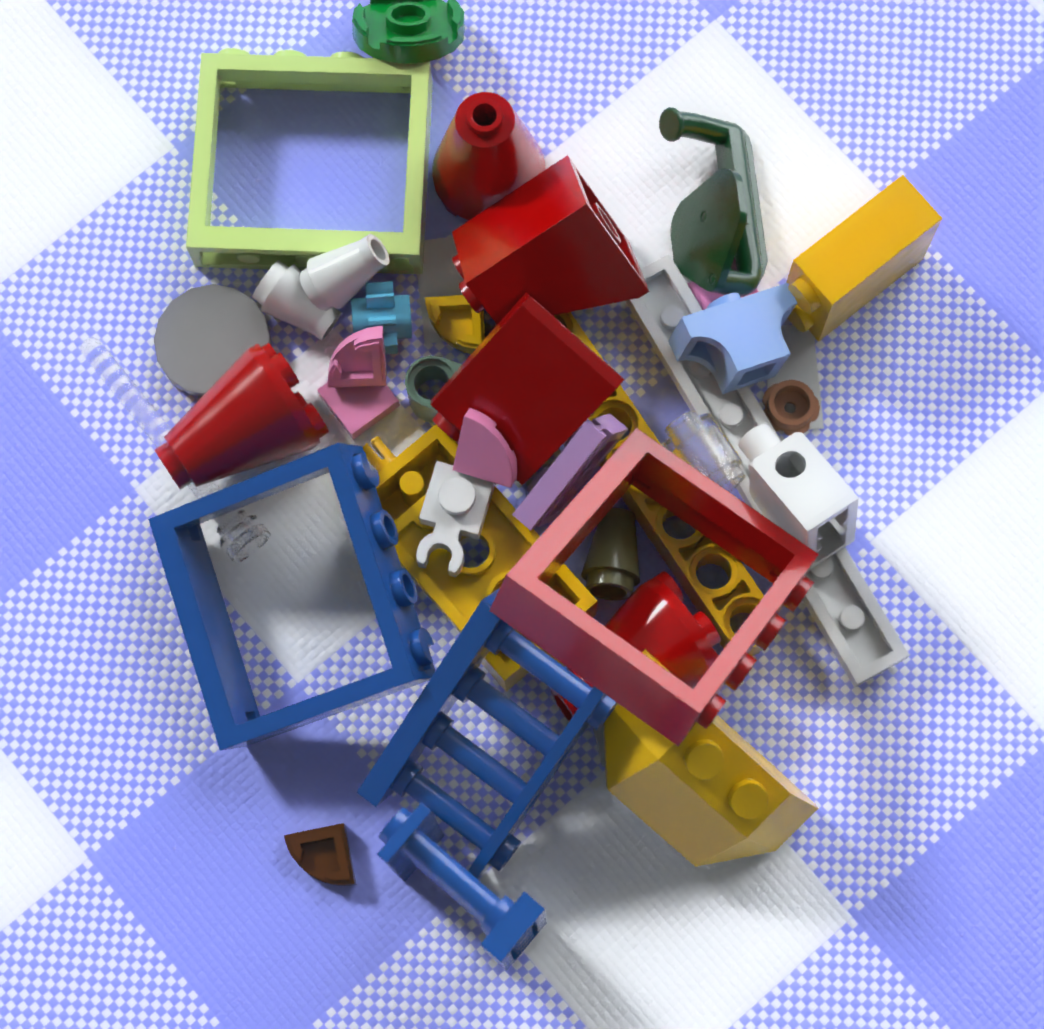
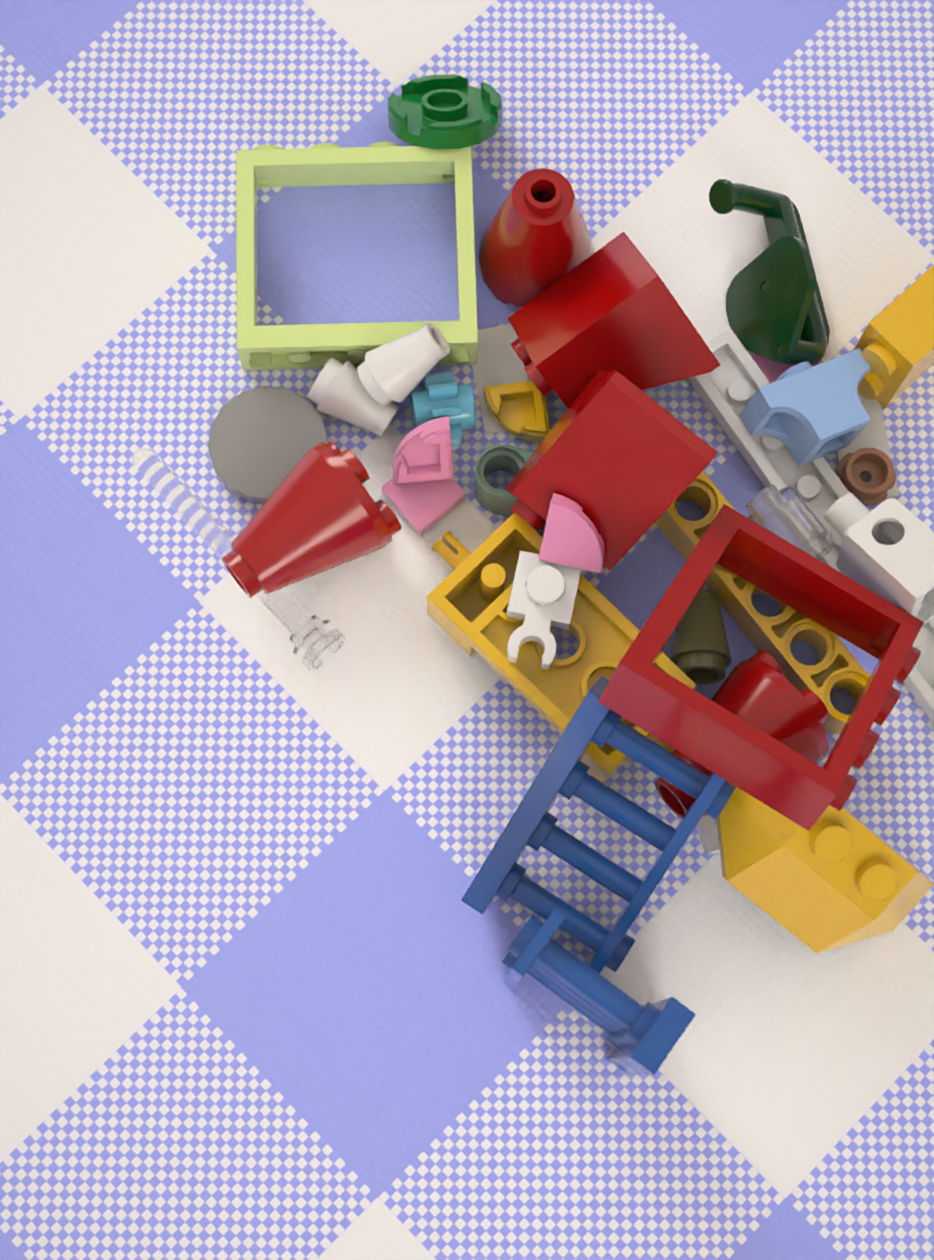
camera: 10 degrees left, 0 degrees up
(206, 618) = (289, 733): blue window -> none
(323, 854) = (427, 966): reddish brown tile -> none
(561, 480) = (642, 568): lavender plate -> none

